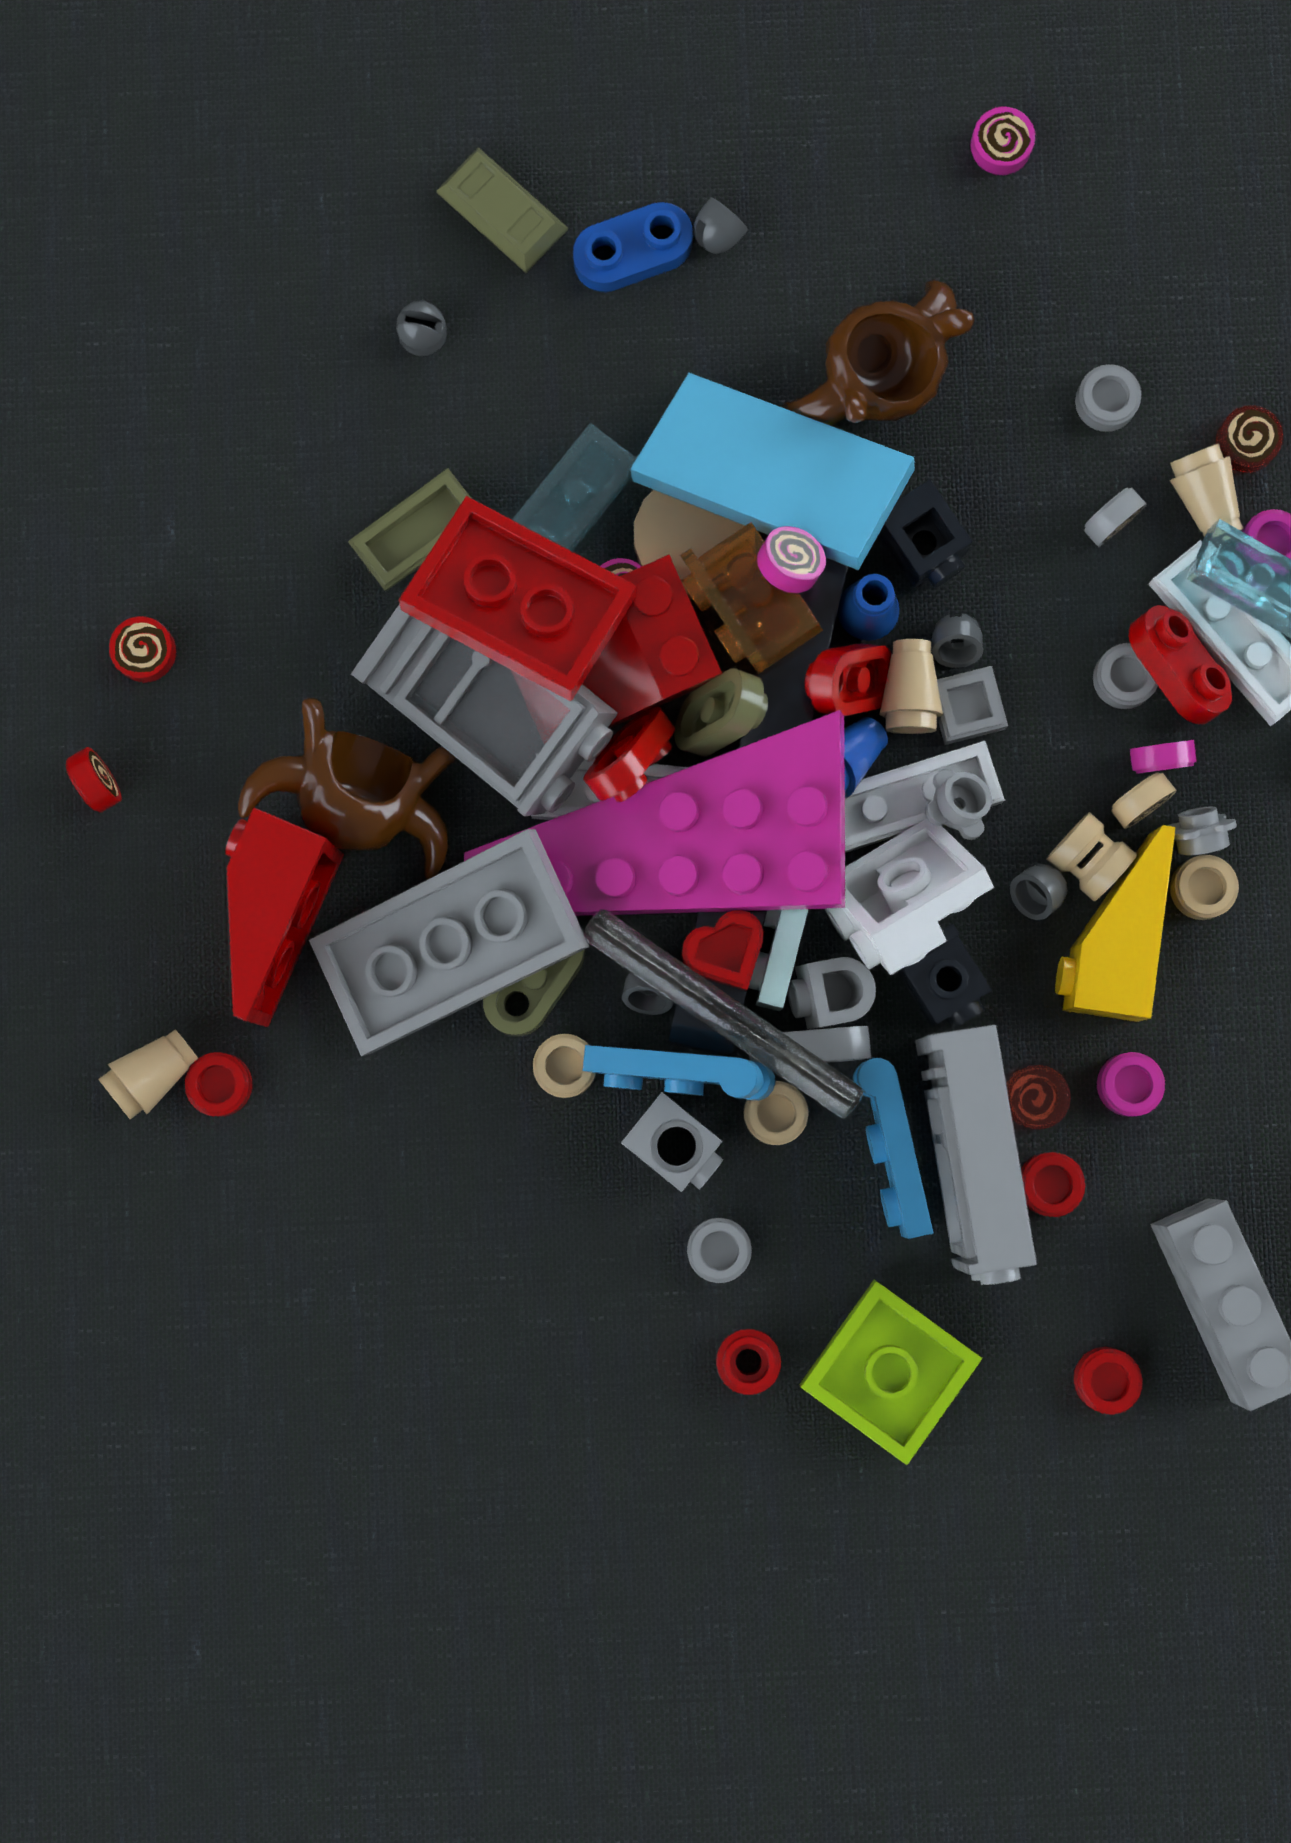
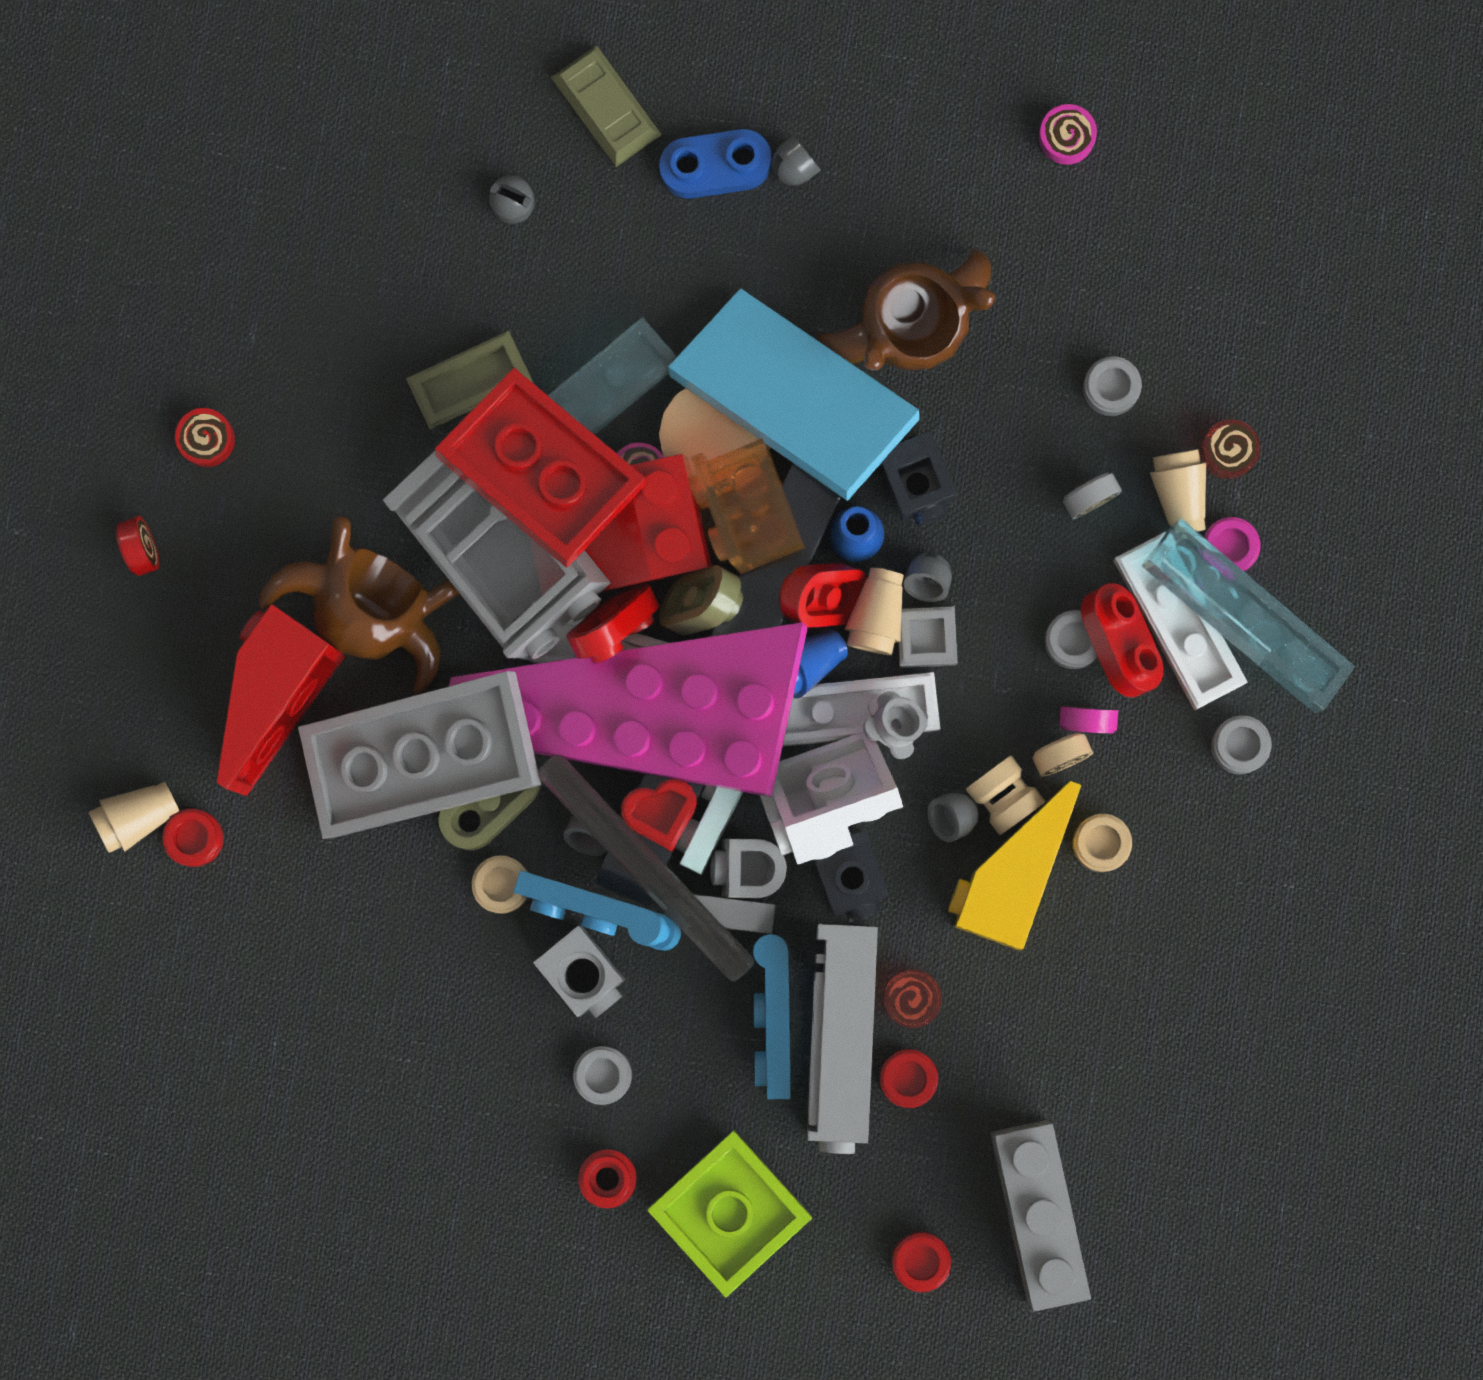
camera: 15 degrees right, 0 degrees up
(779, 1116) = (679, 968): tan tile -> none
(791, 559) = (788, 480): tile -> none
(1131, 1084) = (998, 1004): dark pink tile -> none
(1202, 831) = (1108, 792): light grey plate -> none

